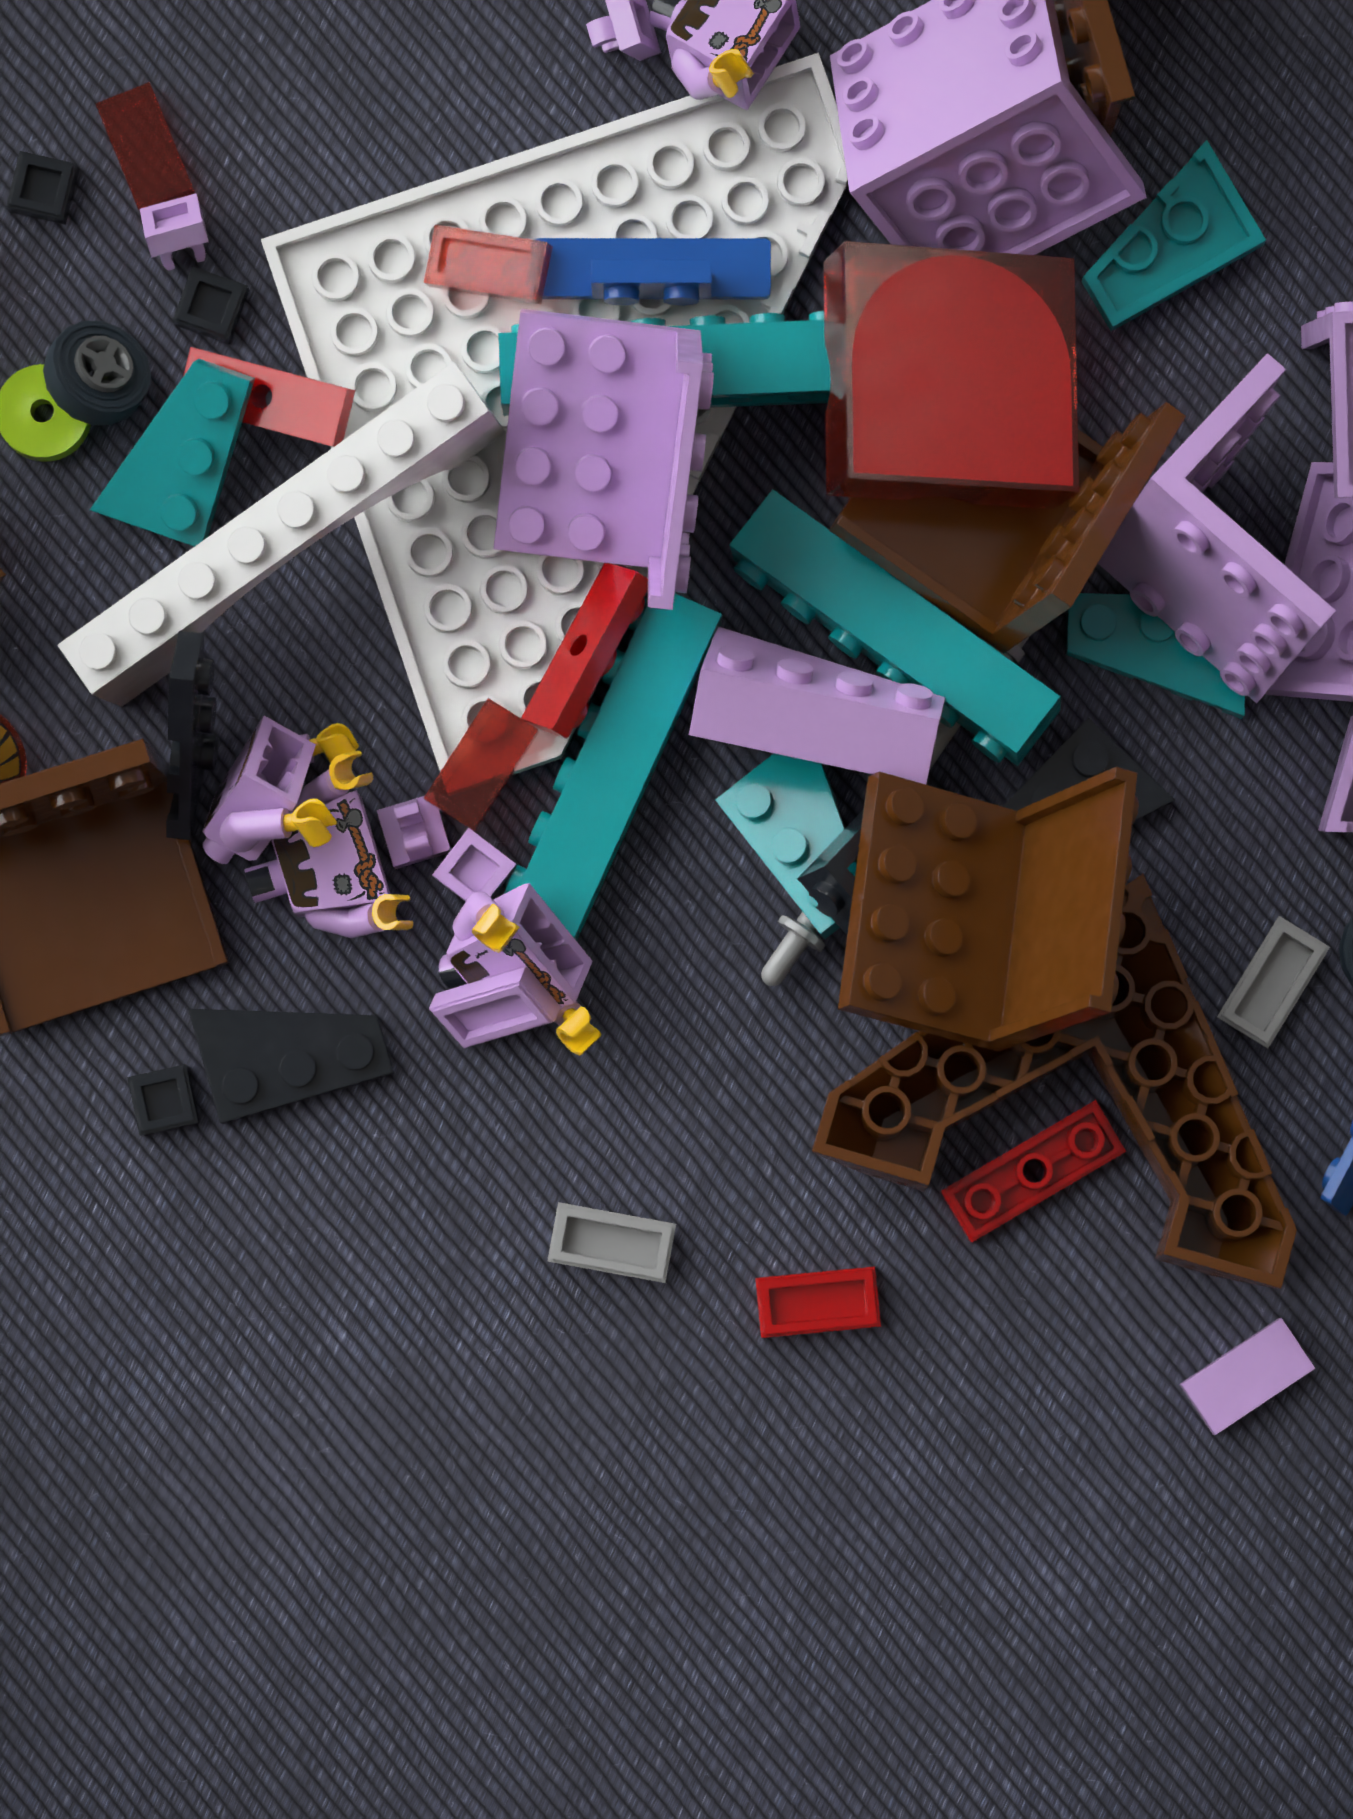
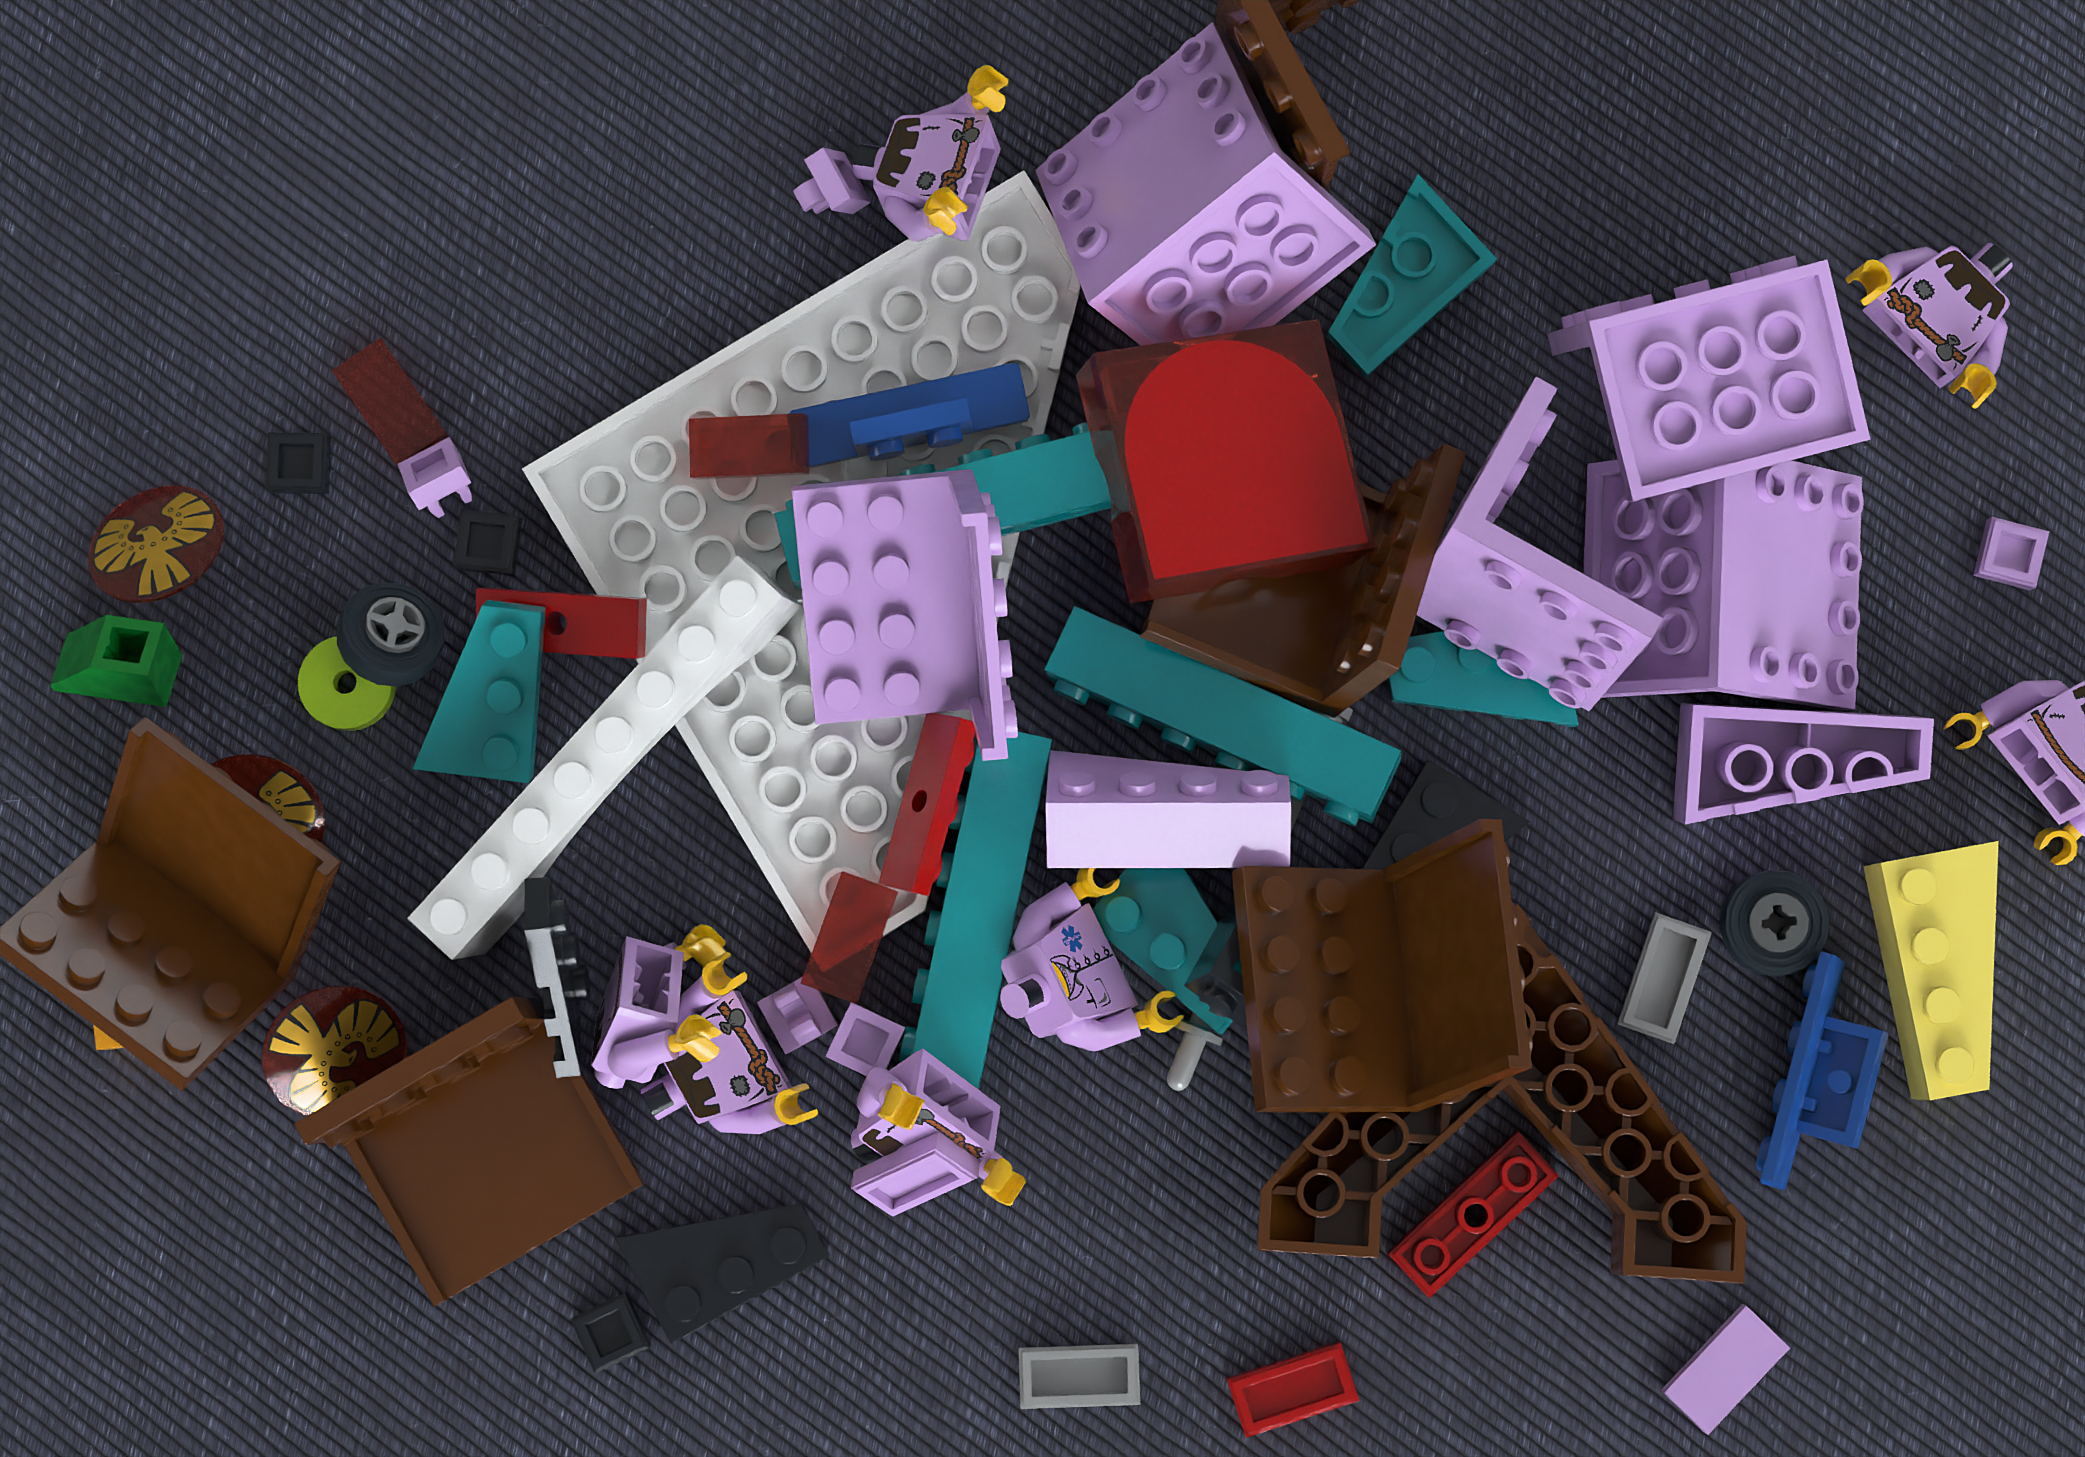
camera: 15 degrees left, 0 degrees up
(688, 847) = (1068, 975): none -> lavender torso

